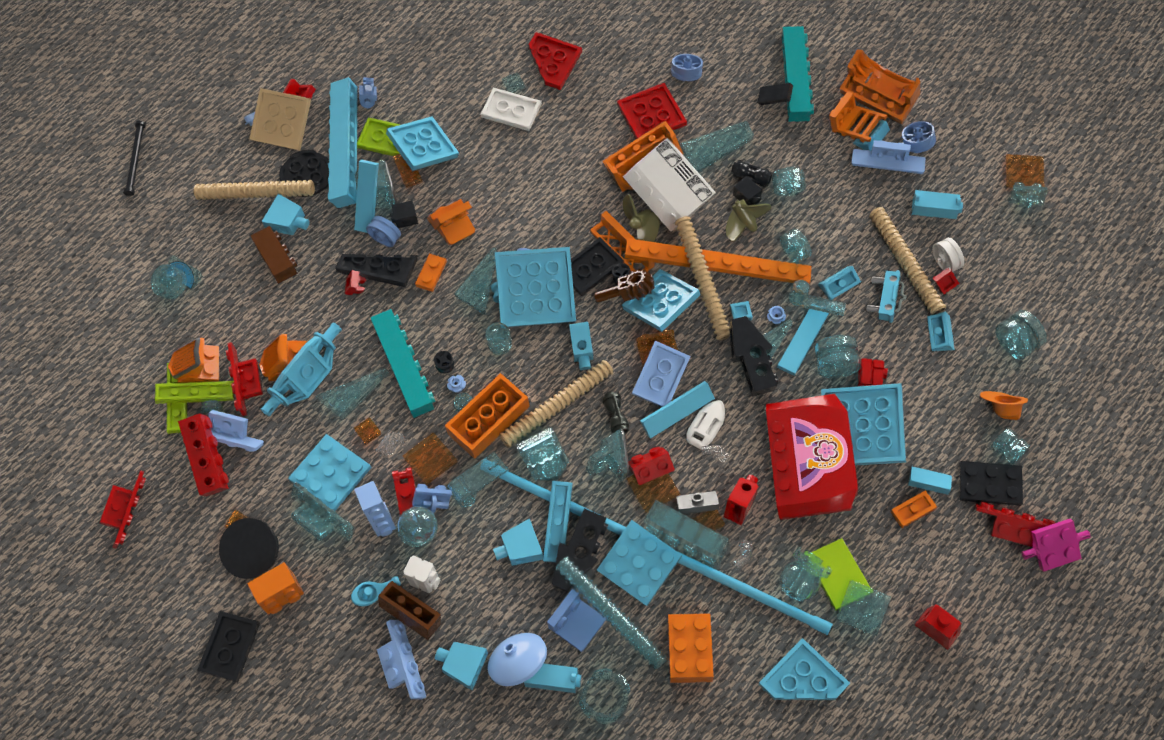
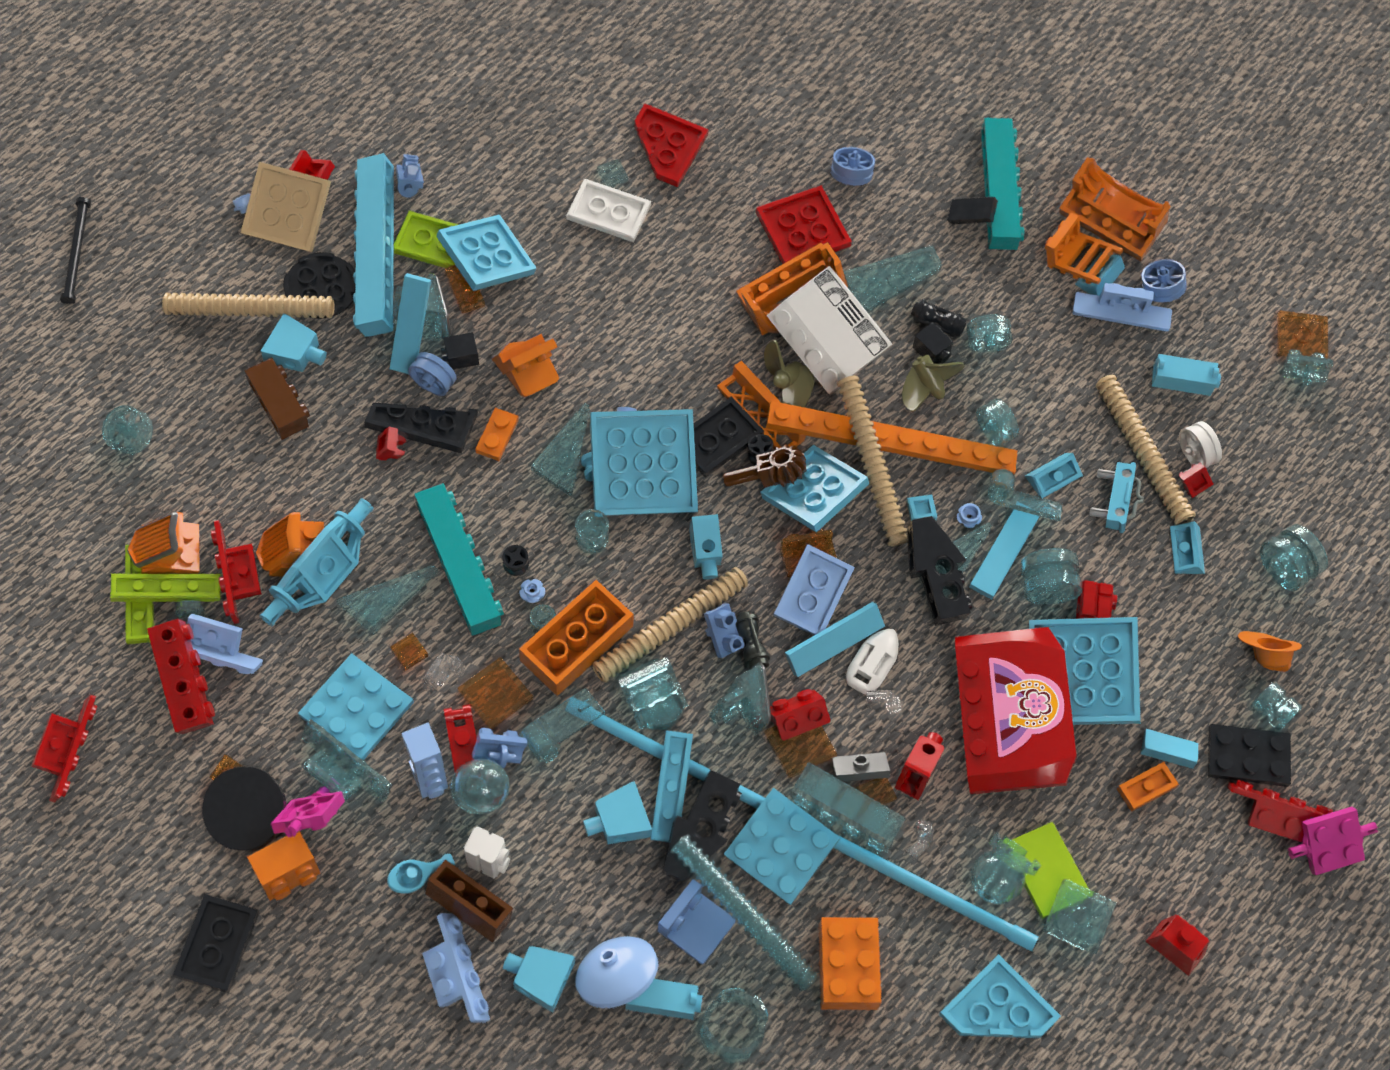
camera: 10 degrees left, 0 degrees up
(192, 275) = (161, 421): slope -> none
(293, 549) = (308, 812): none -> dark pink plate
(594, 406) = (723, 630): none -> medium blue hips

